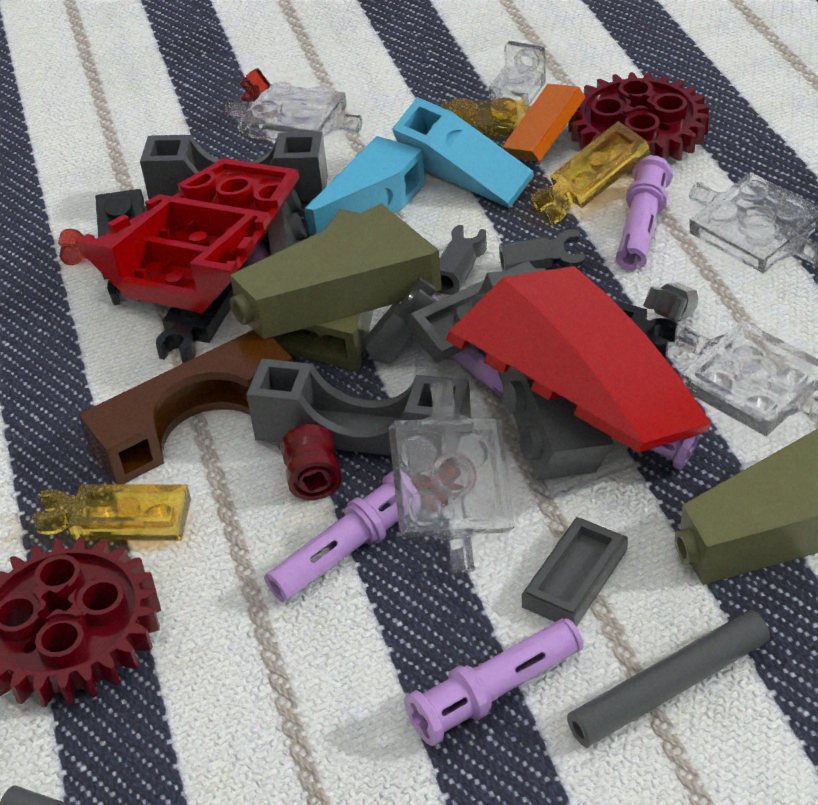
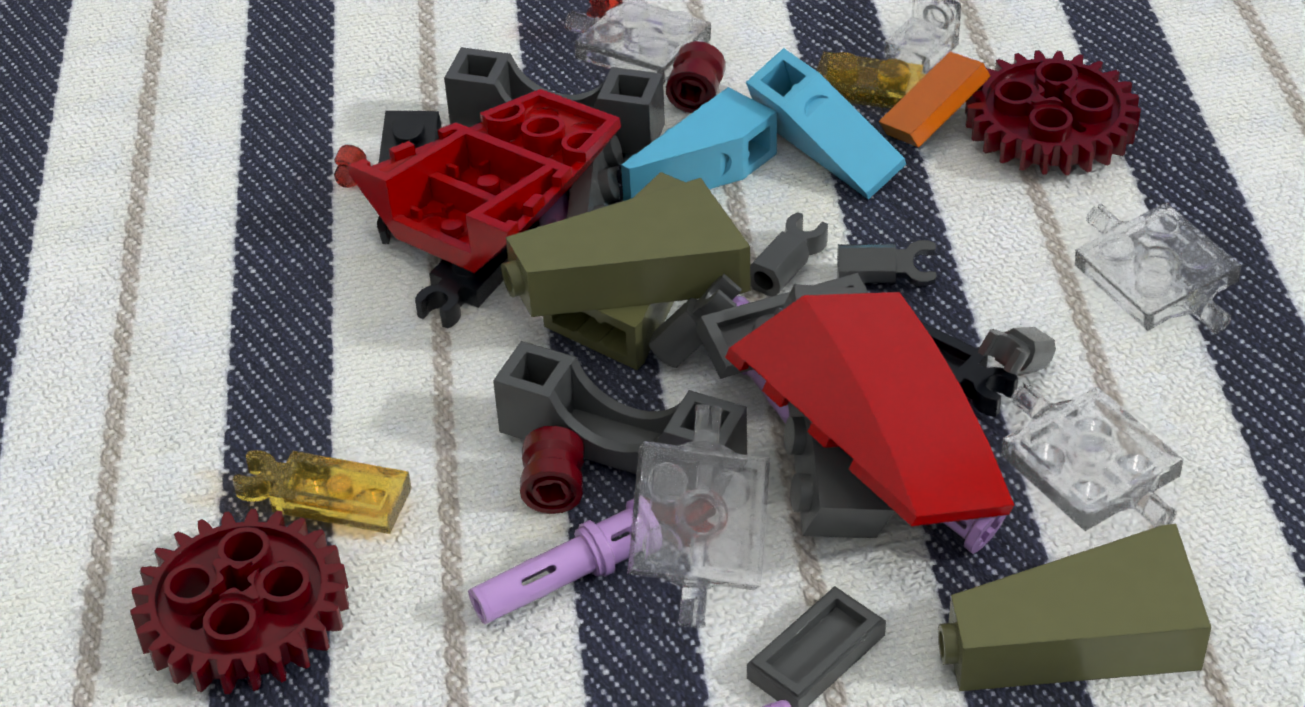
camera: 10 degrees right, 0 degrees up
(132, 428) = (369, 392): reddish brown arch -> none
(344, 133) = (695, 76): none -> dark red wheel
(591, 171) = (972, 171): clear yellow plate -> none
(645, 199) = (1029, 216): lavender pin -> none

